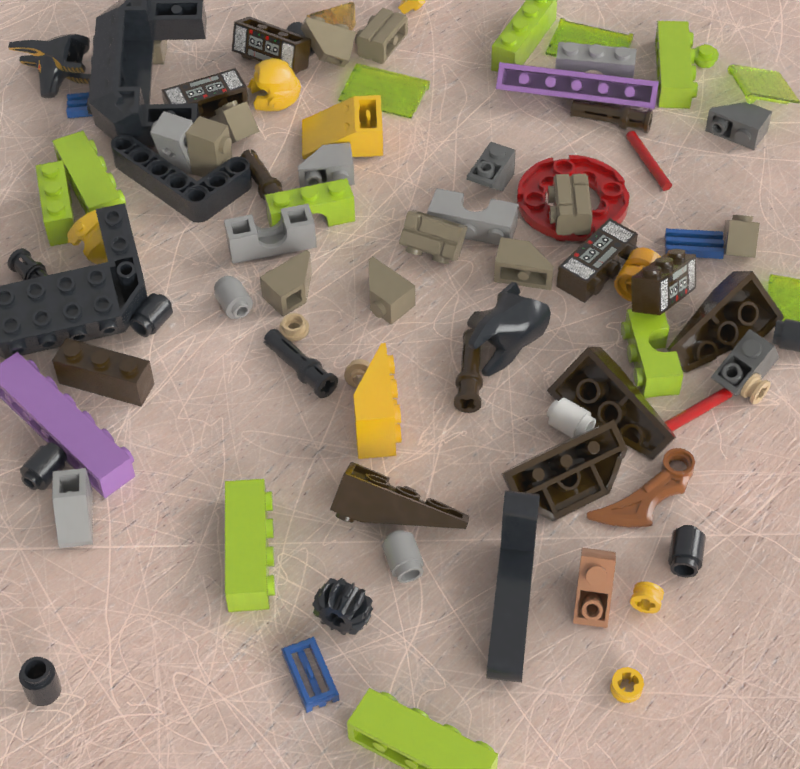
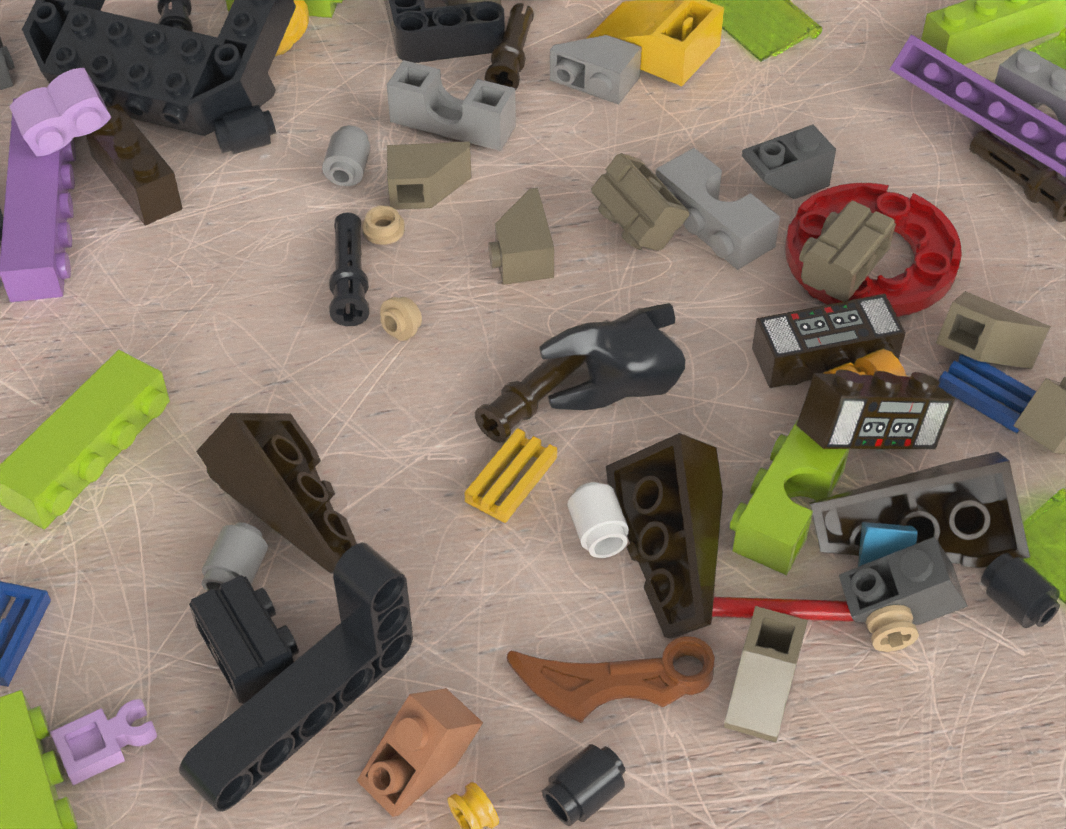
camera: 35 degrees right, 0 degrees up
(43, 361) = (59, 112): none -> lavender brick
(331, 199) = (557, 100): lime arch -> none
(342, 606) = (98, 573): black gear -> none
(376, 408) = (366, 361): yellow slope -> none
(427, 690) = (95, 743): none -> lavender plate
(450, 590) = (243, 636): none -> black brick
(499, 404) = (495, 467): none -> yellow tile
(522, 263) = (718, 293): dark tan slope -> none
(571, 471) = (517, 583): dark brown wedge -> none
(648, 160) = (1026, 256): red bar -> none
(672, 211) = (992, 332): none -> dark tan slope
(718, 348) = (883, 539): none -> dark azure slope
(722, 444) = (765, 674): none -> slope

